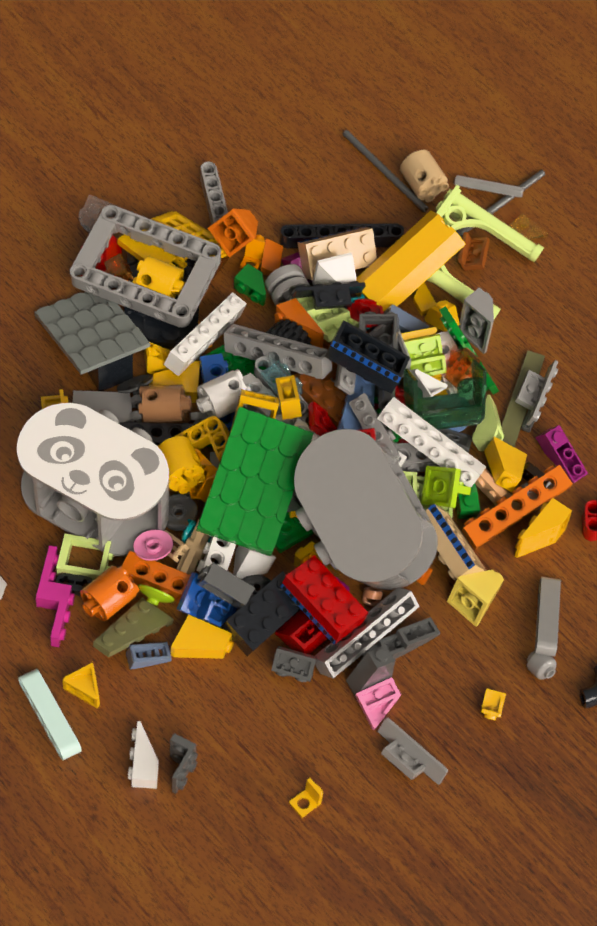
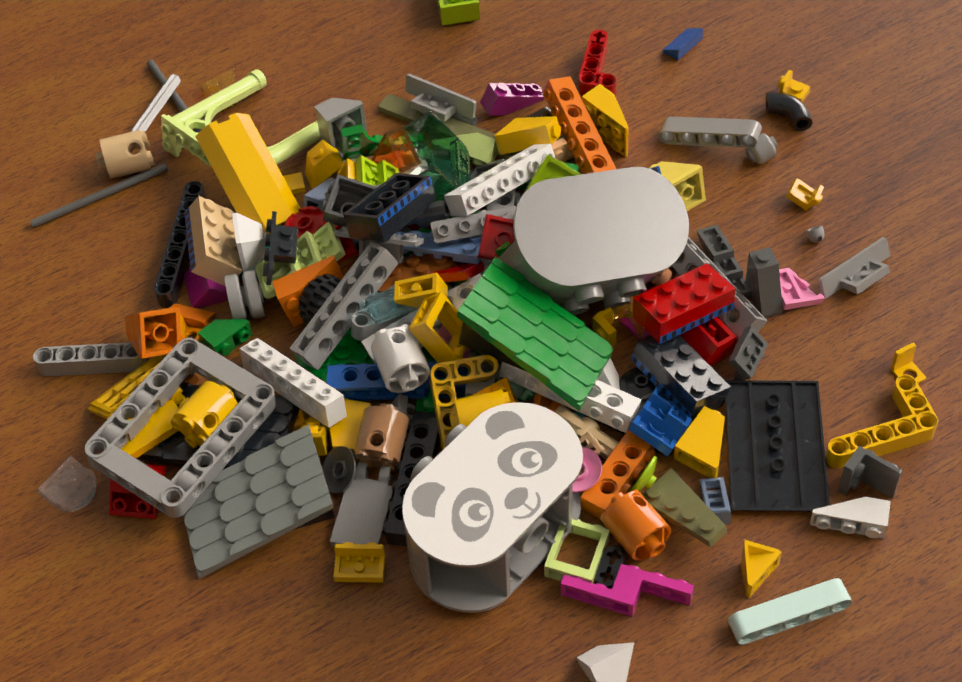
camera: 70 degrees left, 5 degrees down
(119, 267) = (172, 459): clear orange brick -> none
(210, 697) = (775, 446): none -> black piece
(225, 585) = (659, 389): dark grey window -> none
(234, 785) = (912, 424): none -> yellow beam
(449, 717) = (815, 234): none -> light grey hinge

